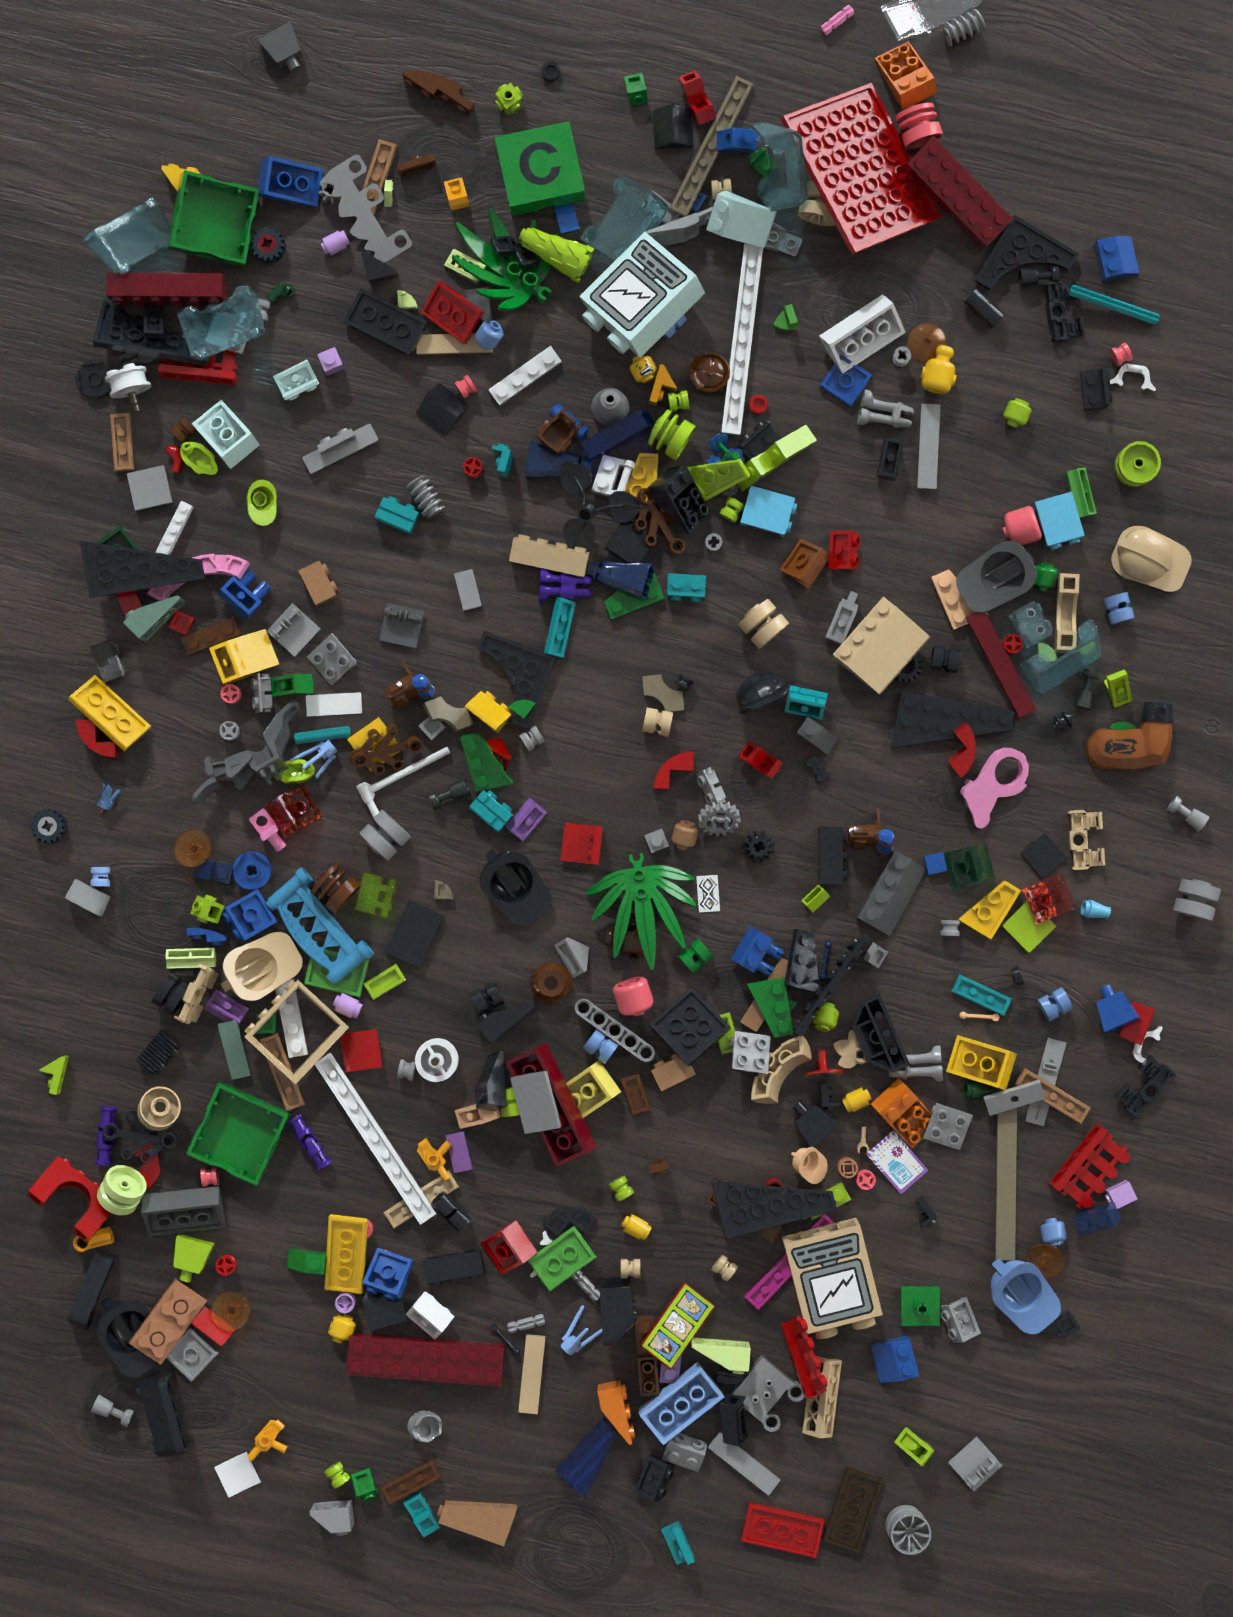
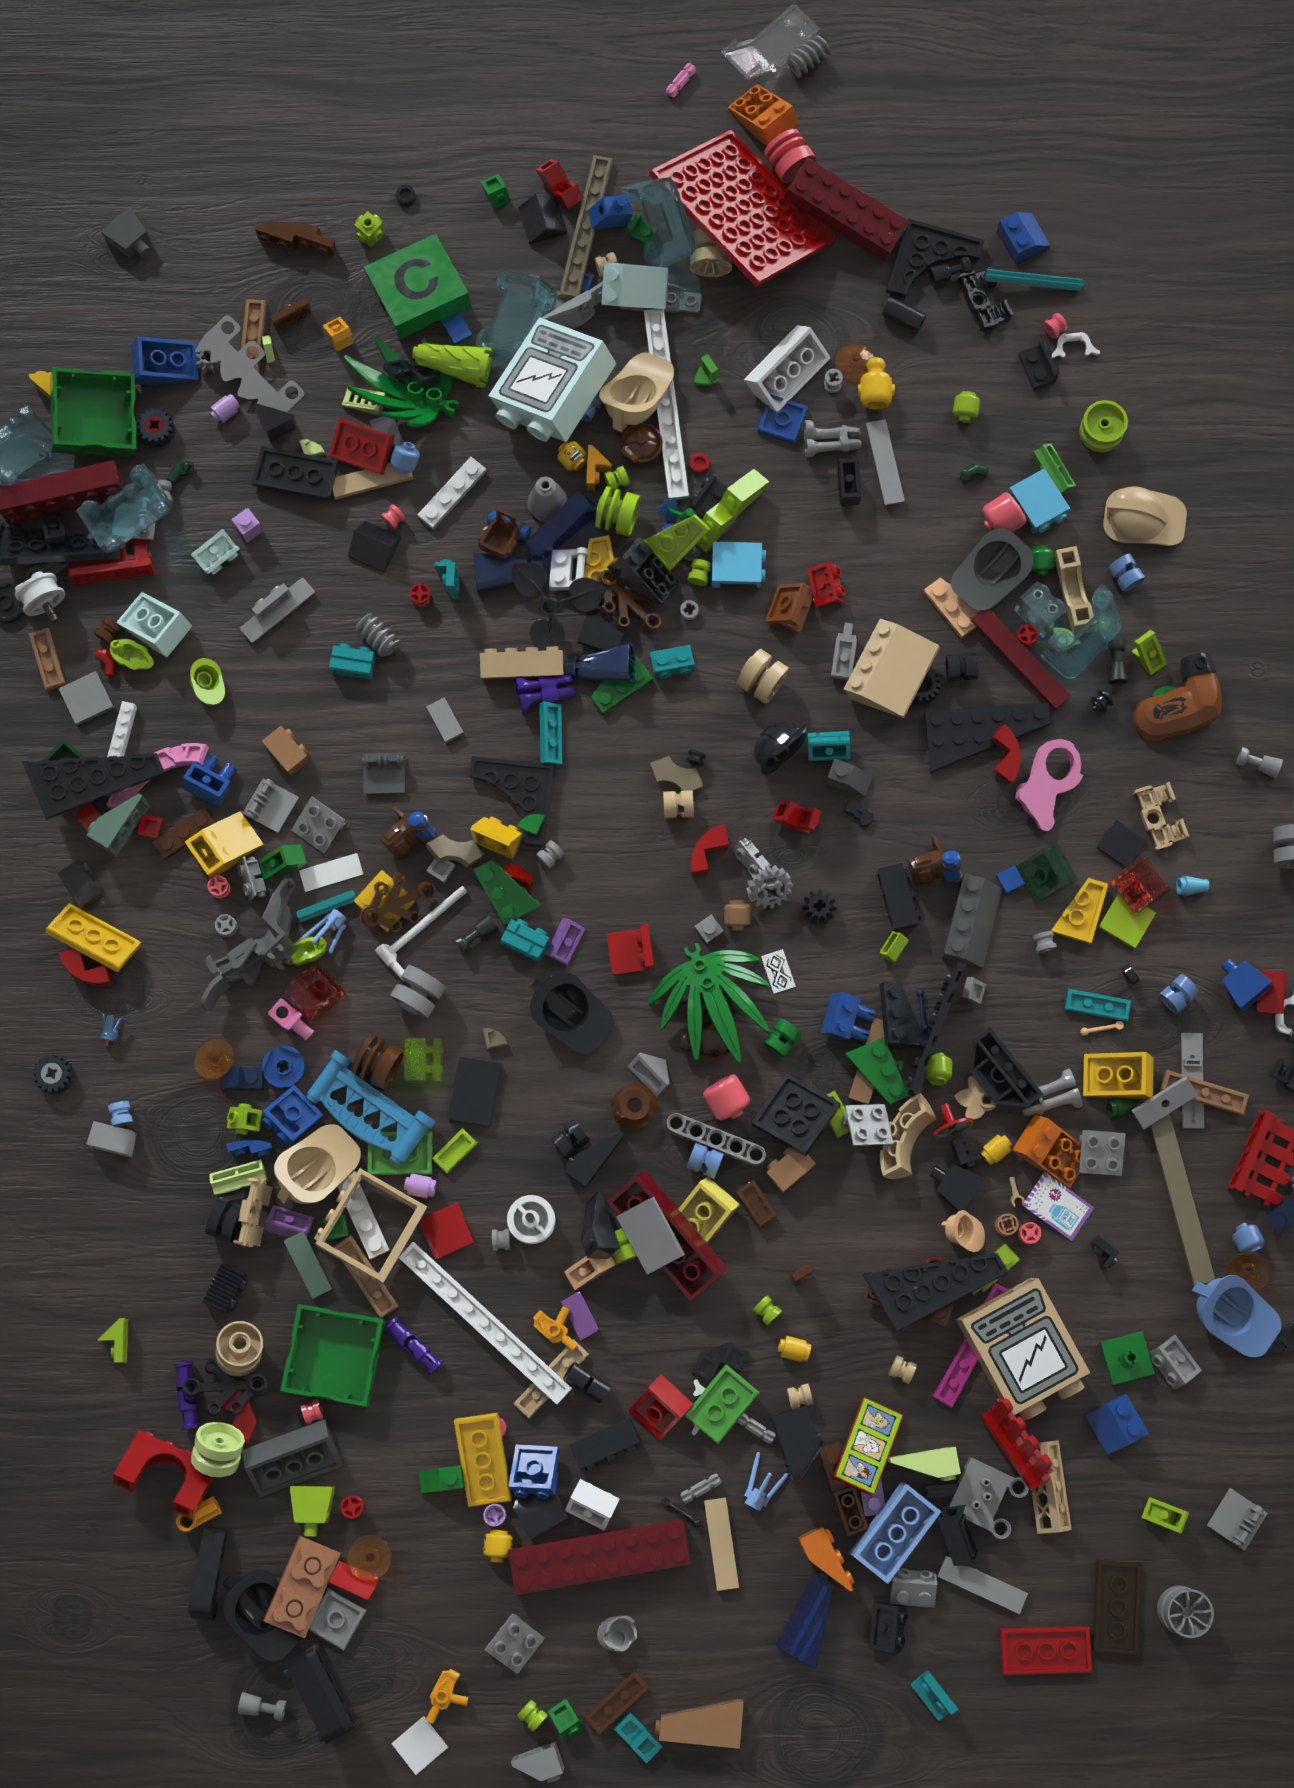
camera: 15 degrees left, 10 degrees down
(336, 1412) = (514, 1643): none -> light grey hinge
(718, 321) = (636, 390): none -> tan piece
(1006, 473) = (968, 471): none -> dark green arm

